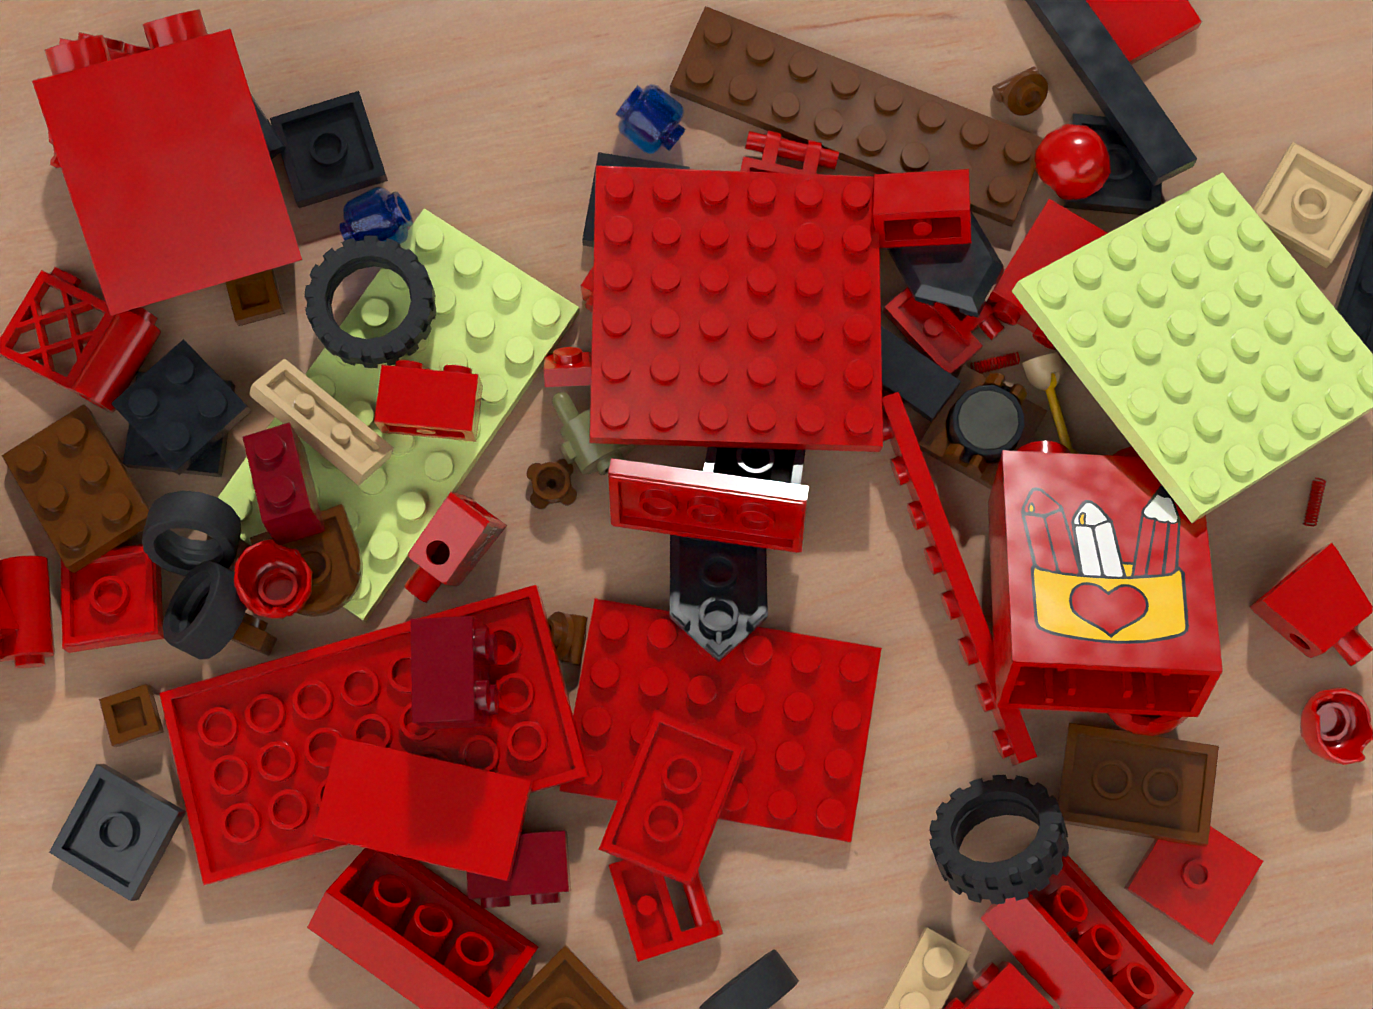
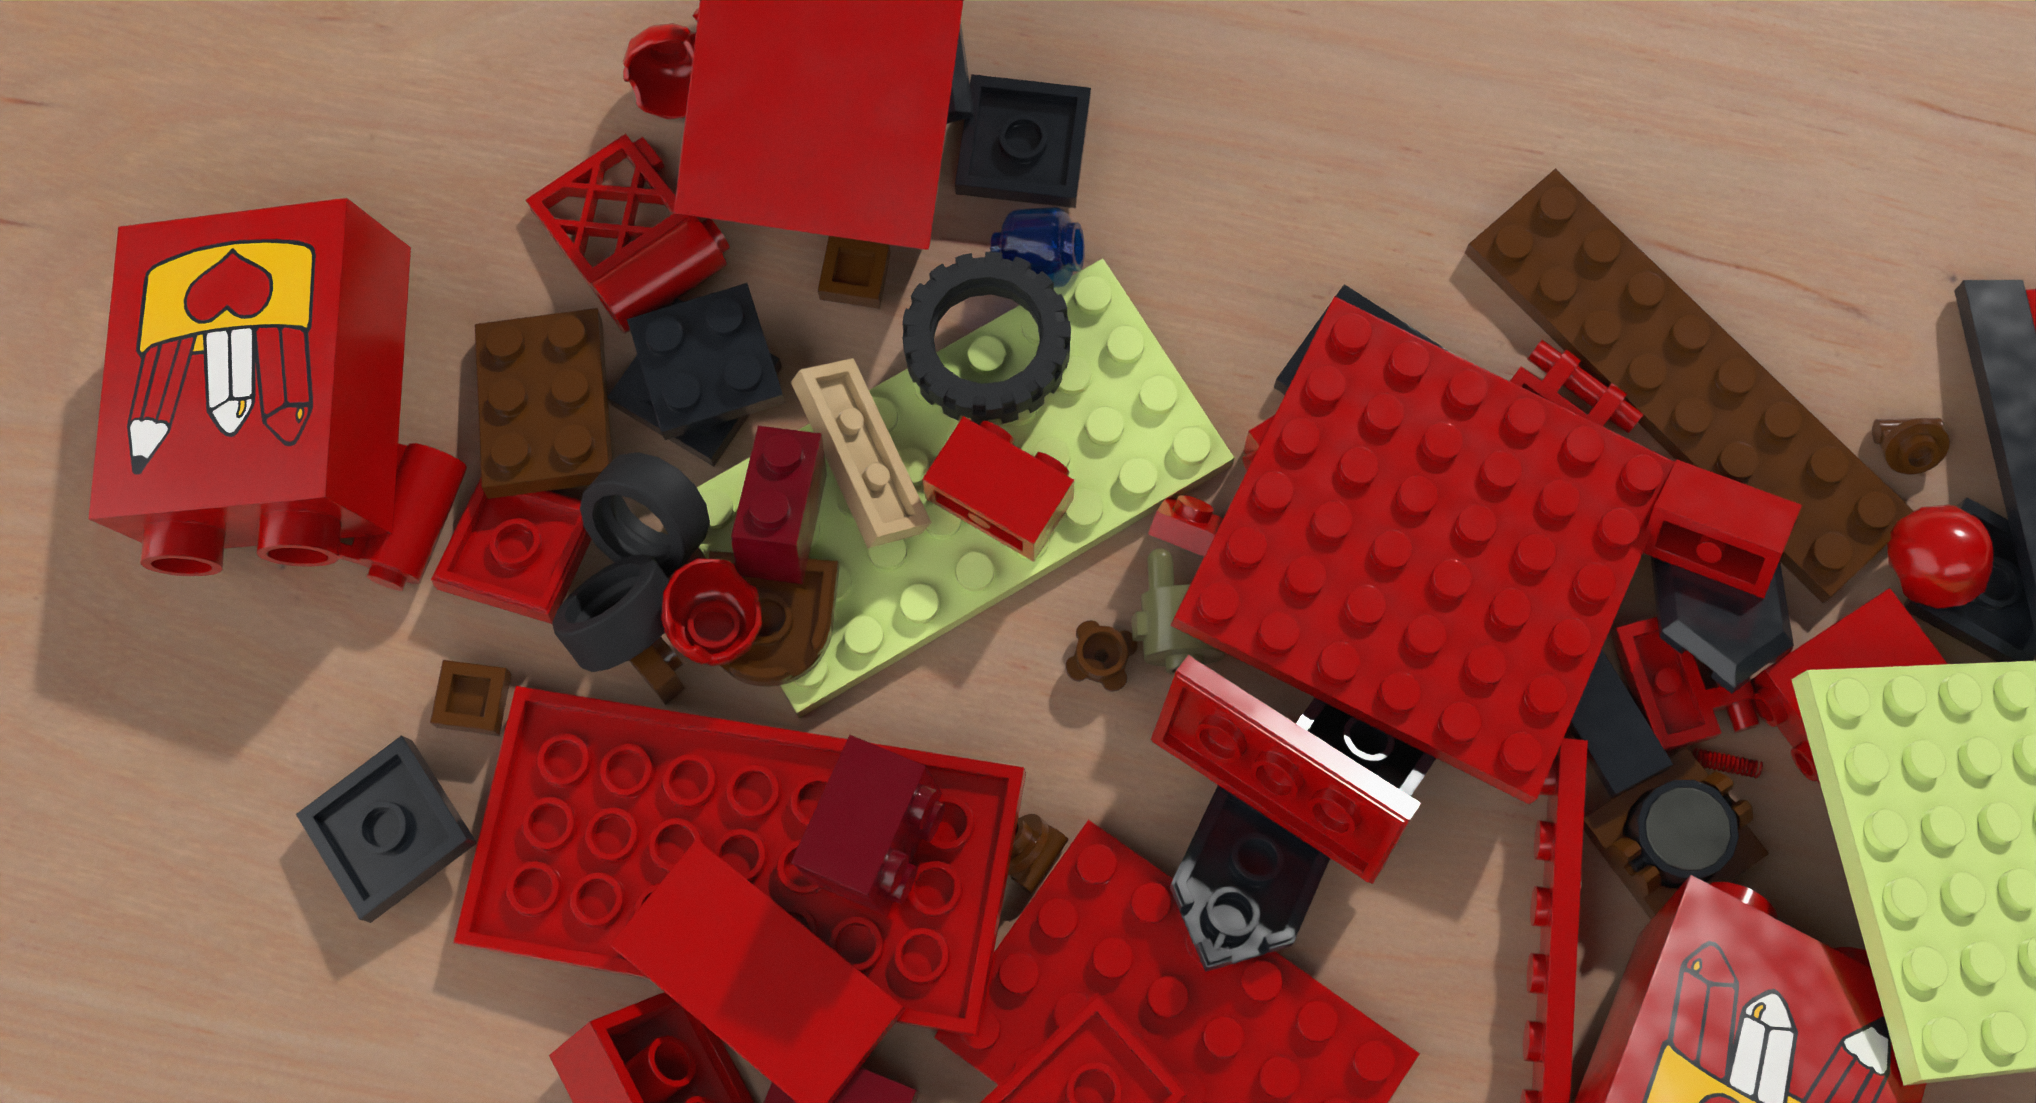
camera: 30 degrees right, 5 degrees down
(47, 212) = (660, 69): none -> red hair
(466, 531) = (970, 667): torso -> none
(651, 119) = (1427, 272): clear blue head -> none
(1045, 374) = (1786, 806): hinge -> none

